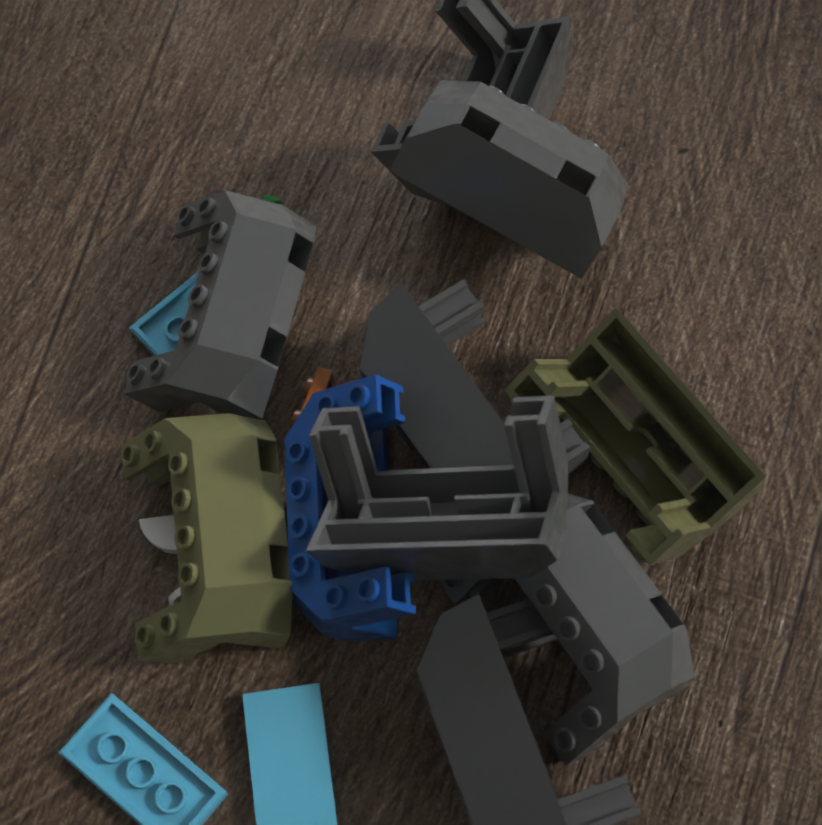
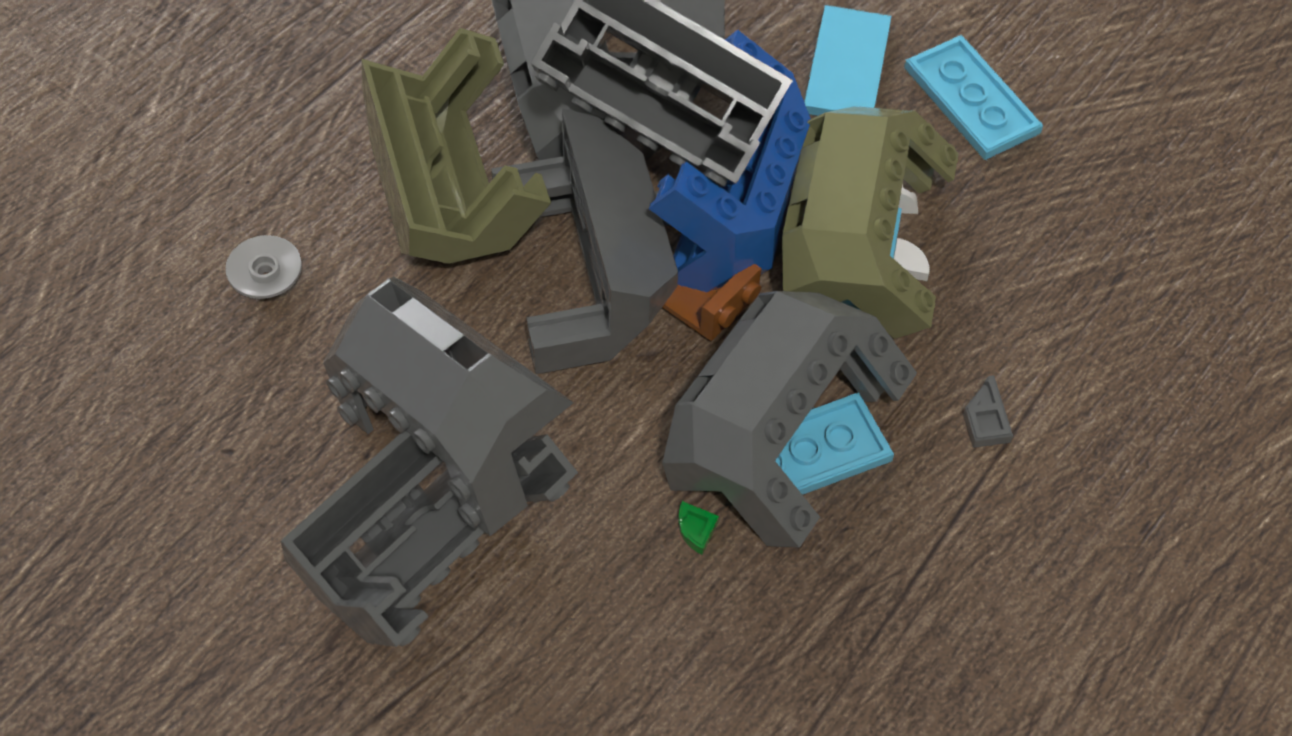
camera: 165 degrees left, 10 degrees down
(55, 397) = (987, 417): none -> dark grey tile
(751, 289) = (260, 256): none -> light grey dish

